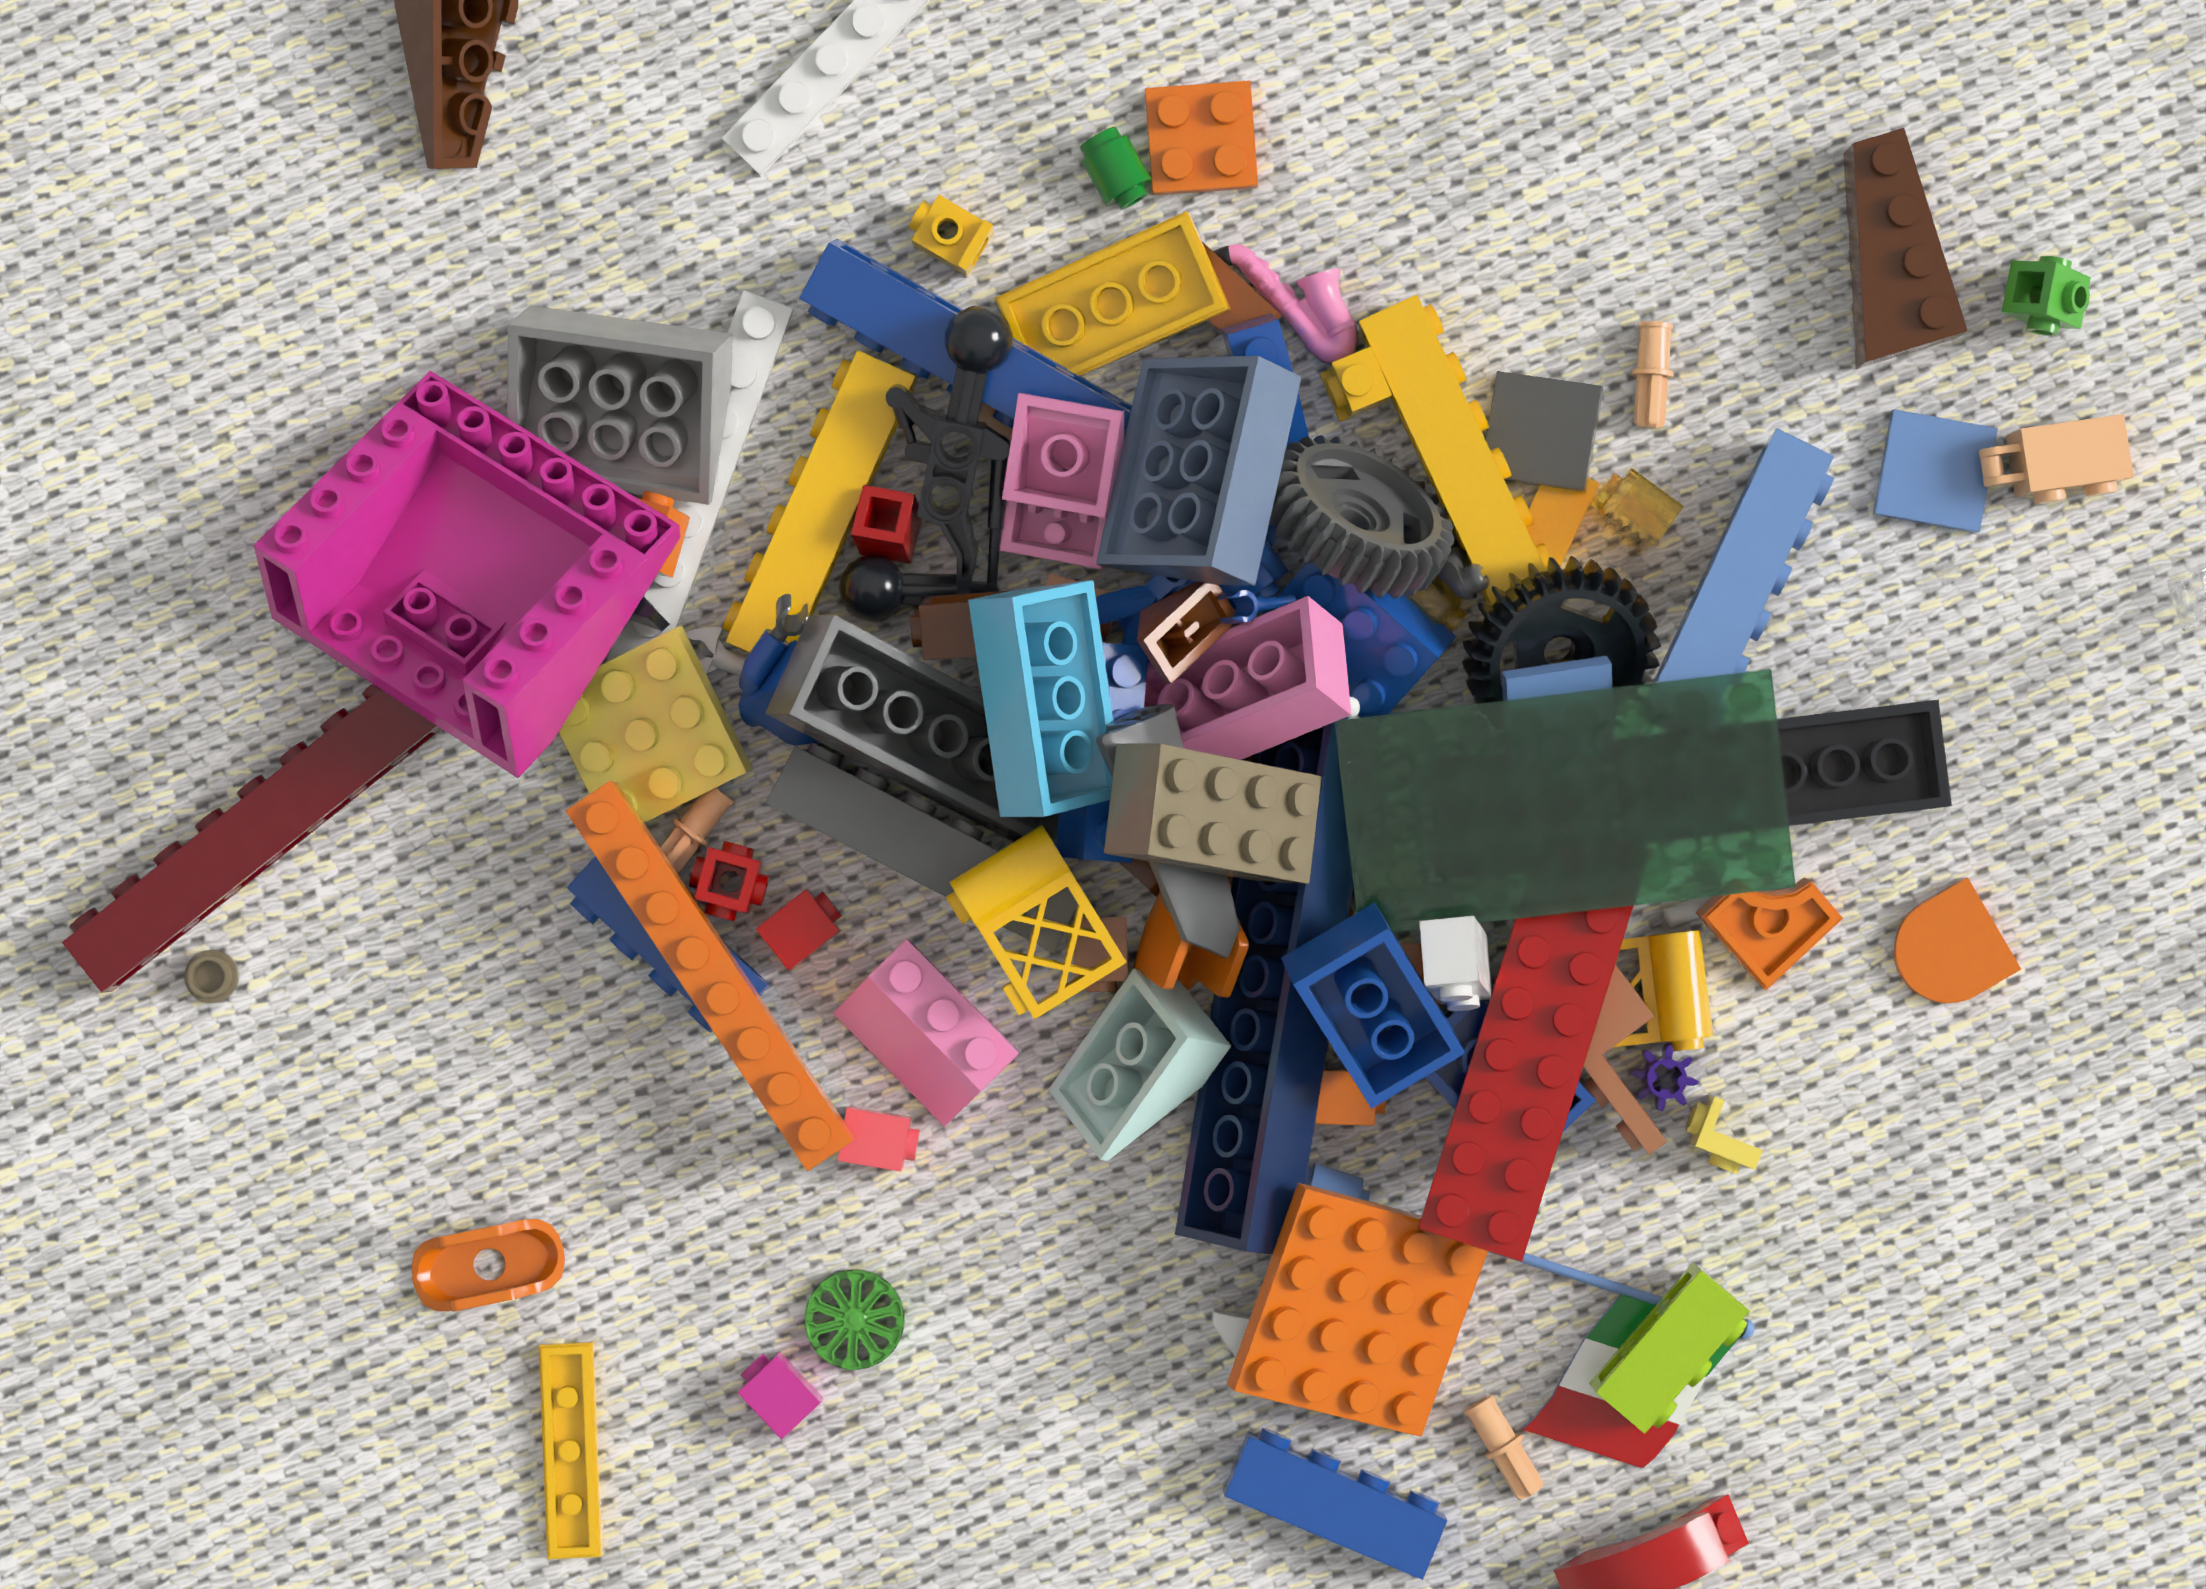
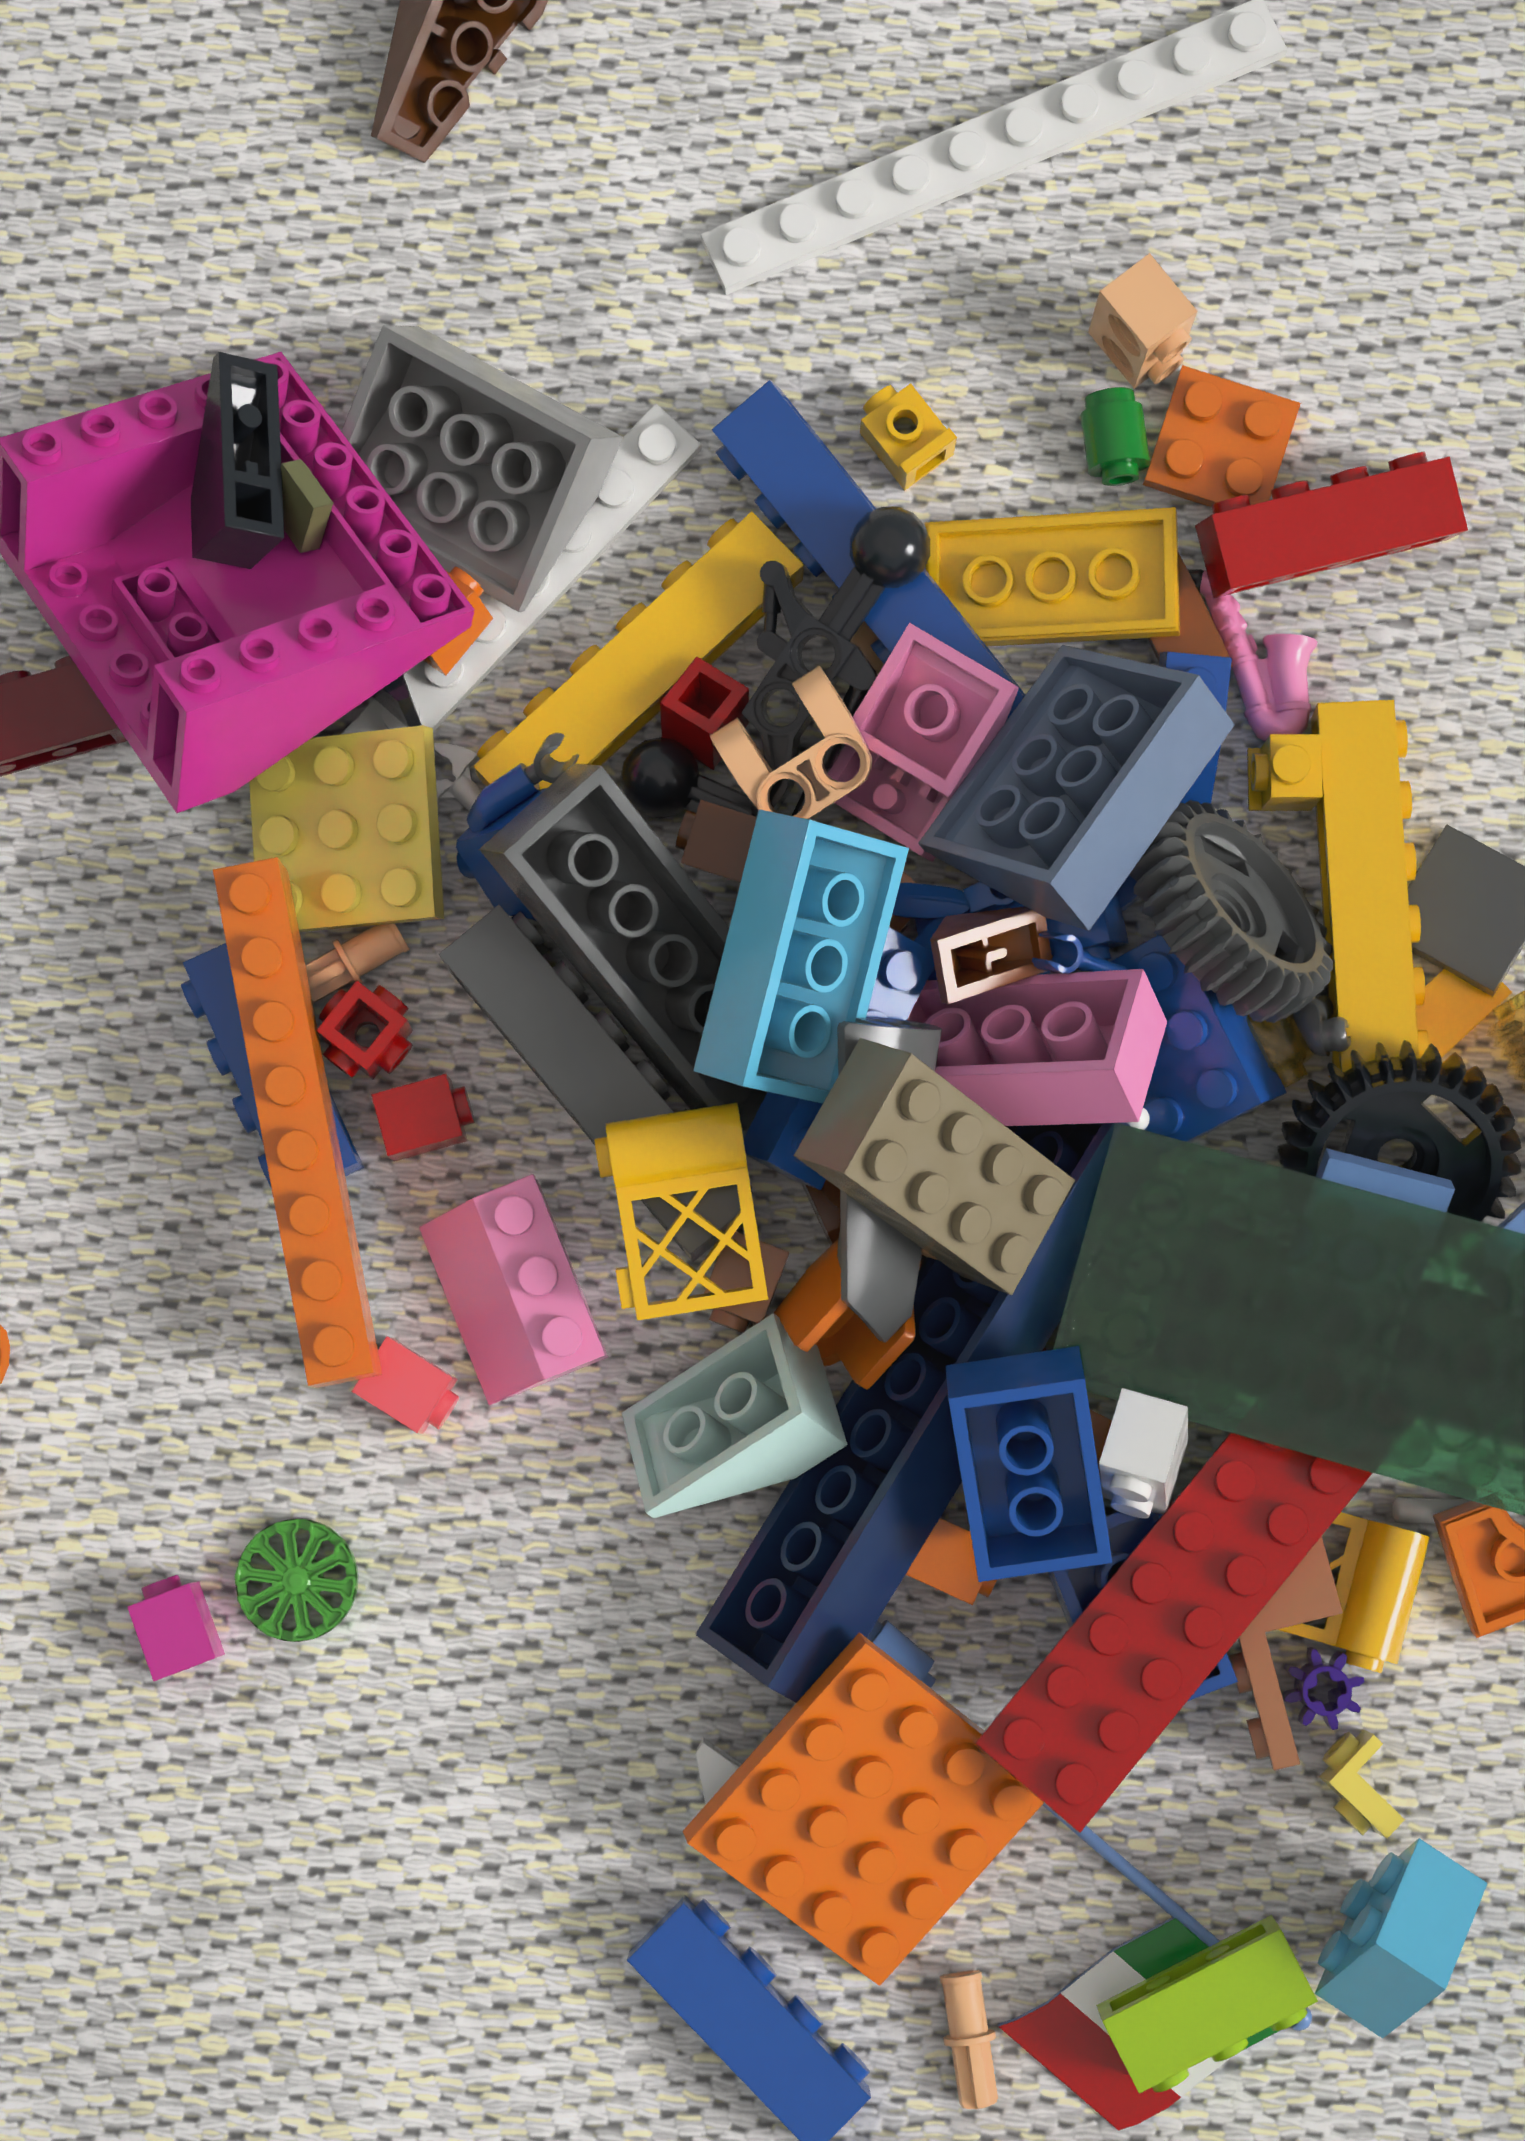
camera: 25 degrees right, 5 degrees down
(444, 483) = (238, 465): none -> black slope
(506, 494) = (304, 506): none -> olive tile
(986, 541) = (807, 768): none -> light nougat piece
(1102, 73) = (1143, 322): none -> light nougat brick
(1313, 174) = (1330, 525): none -> red brick
(1790, 1239) = (1399, 1937): none -> medium azure brick

